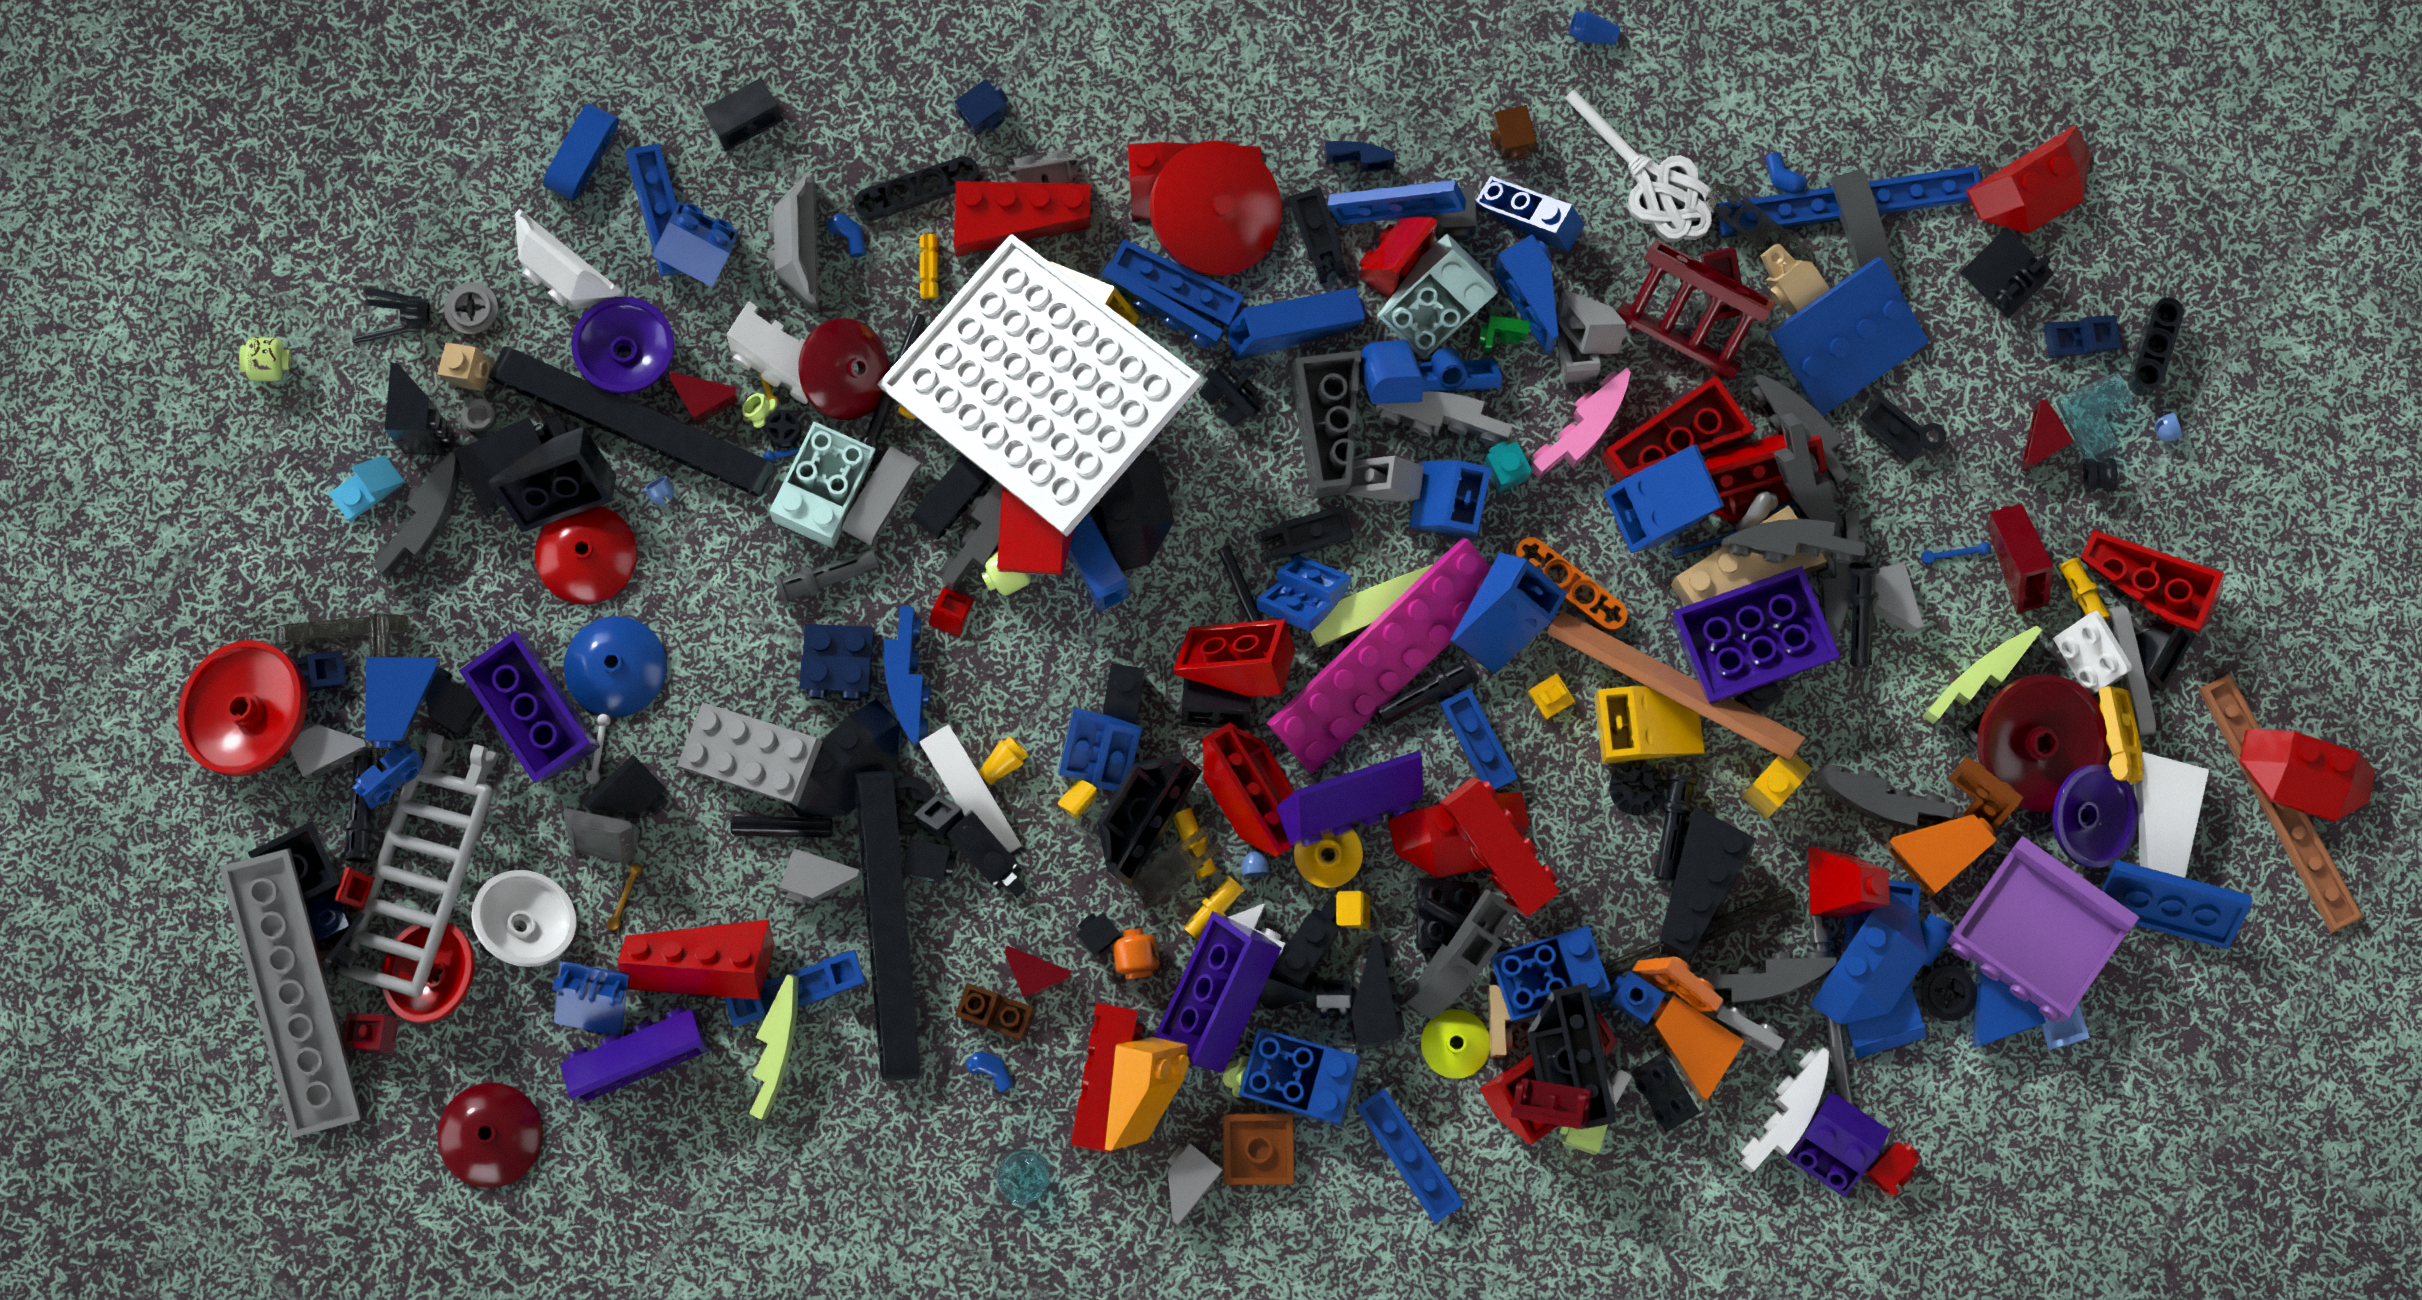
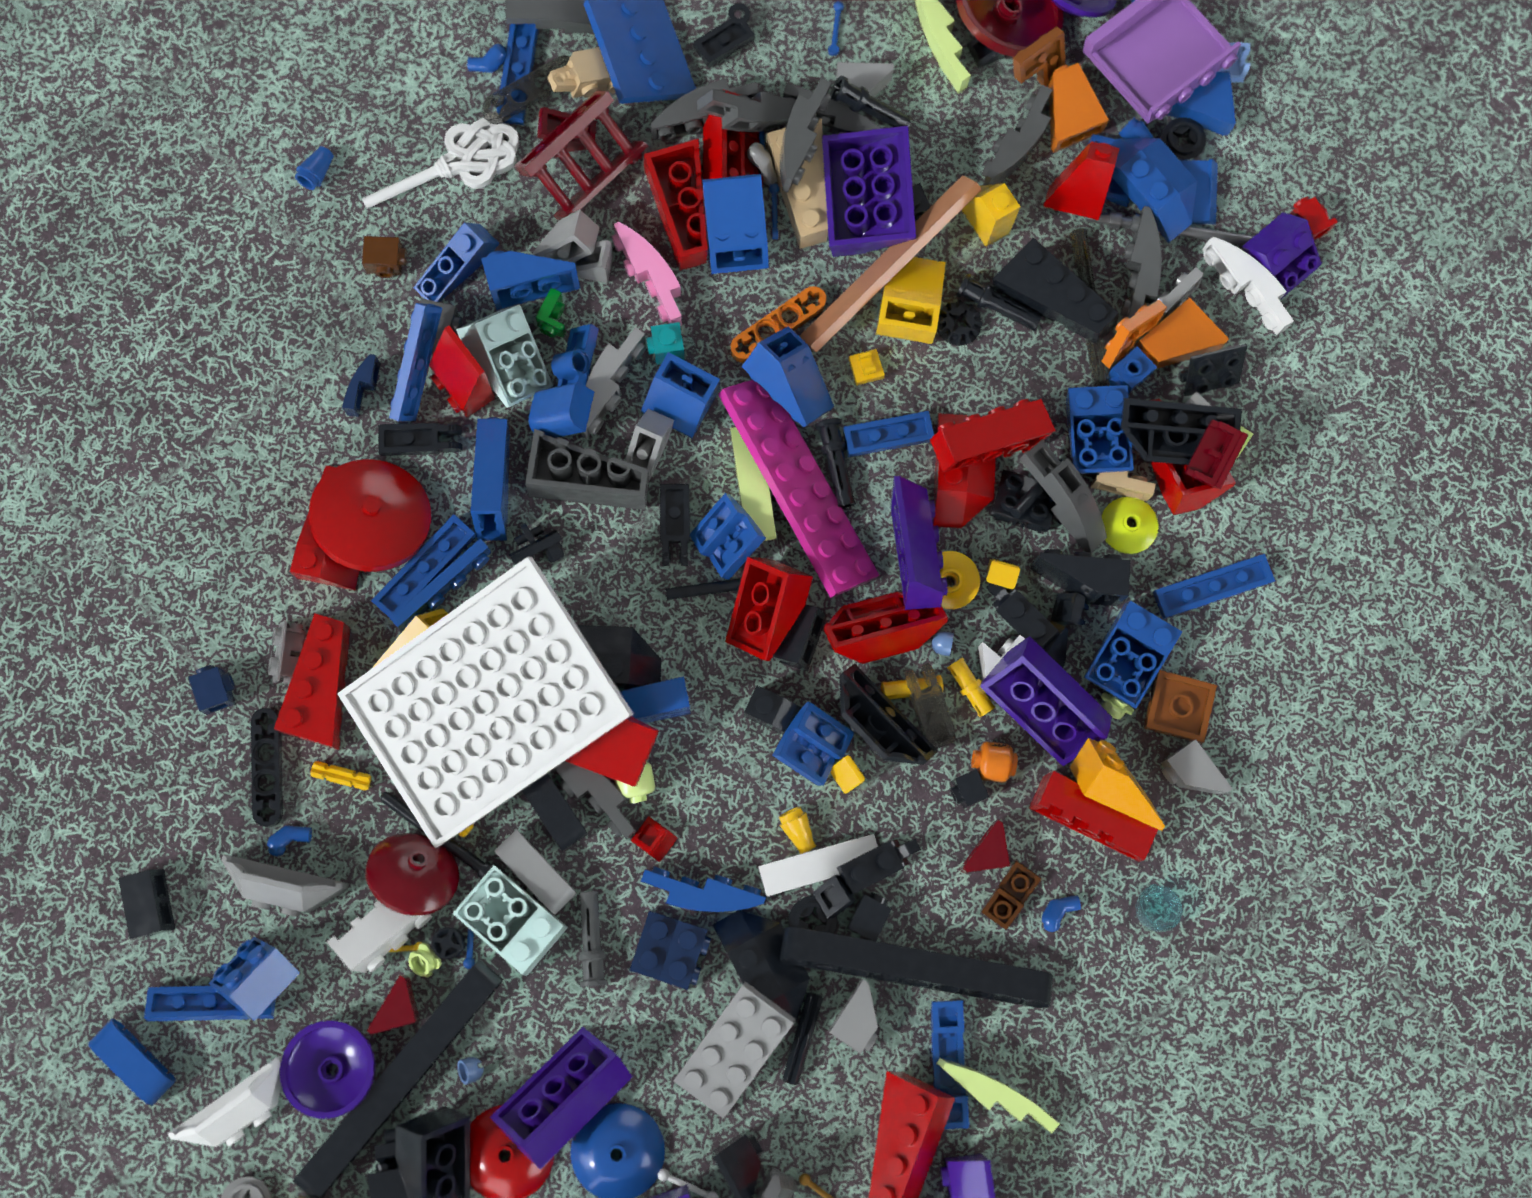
camera: 80 degrees left, 0 degrees up
(655, 589) = (561, 1097): none -> dark purple slope

